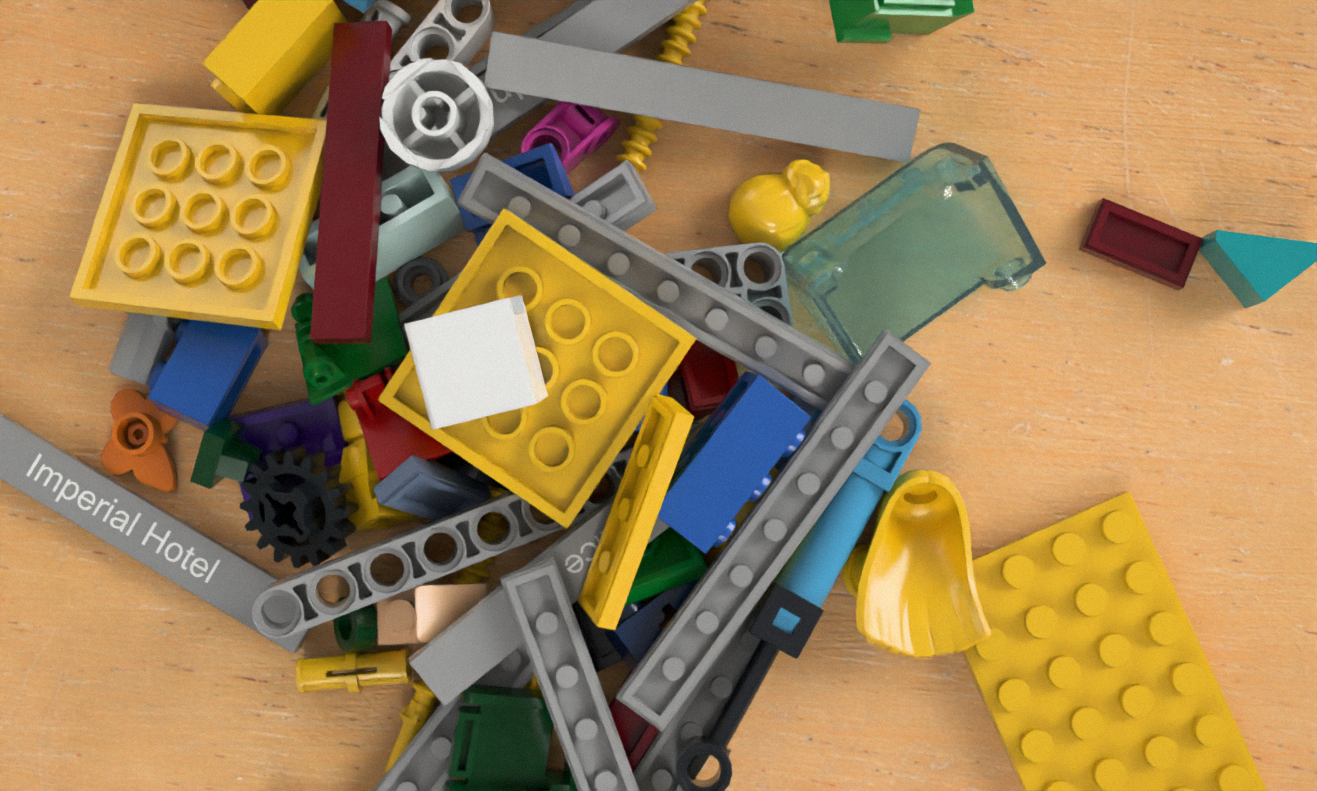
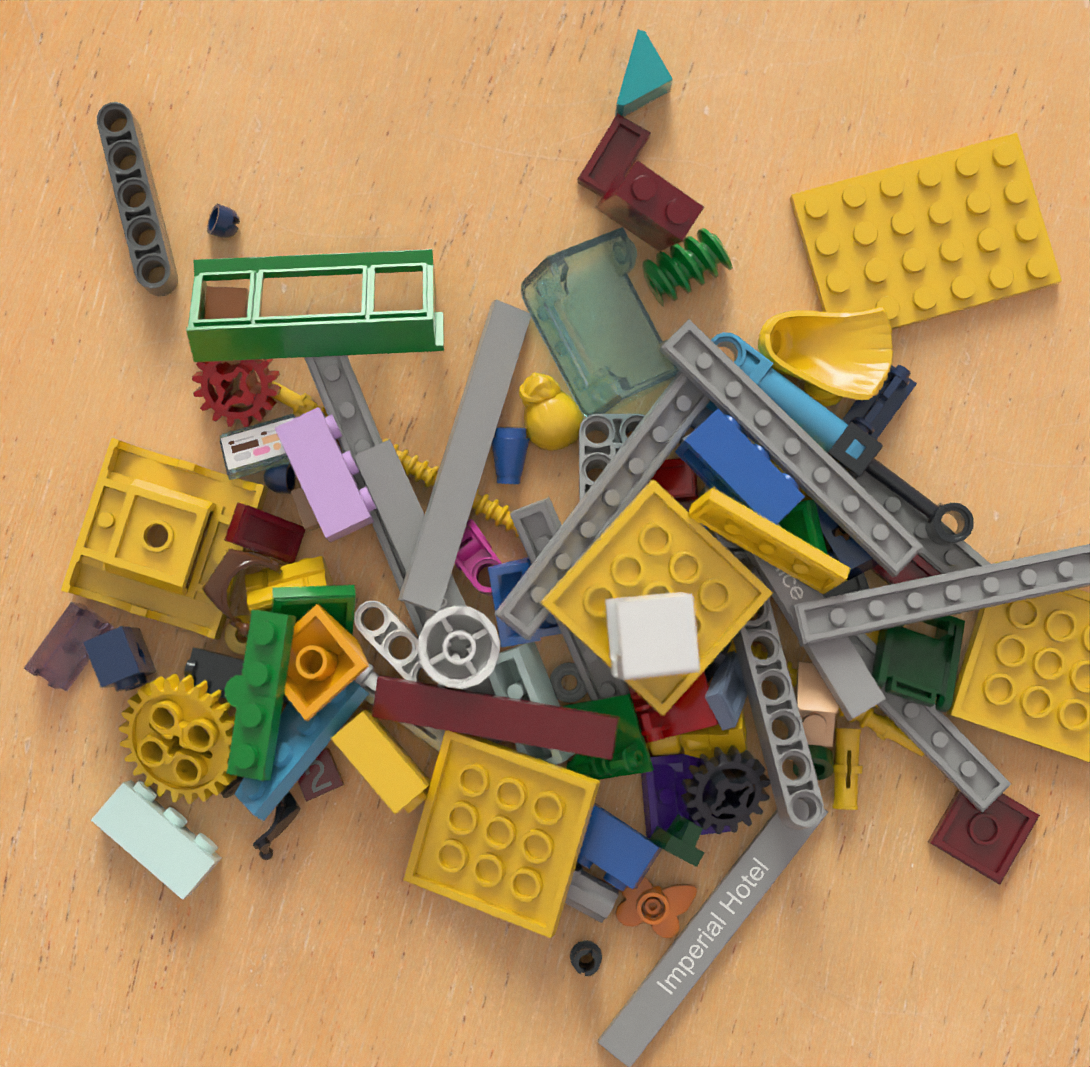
camera: 90 degrees left, 0 degrees up
(49, 351) = (583, 948): none -> black pin
(715, 160) = (509, 453): none -> blue cone
(846, 649) = (878, 411): none -> dark blue hinge
(1007, 359) = (685, 265): none -> green piece
(1081, 290) = (650, 207): none -> dark red panel

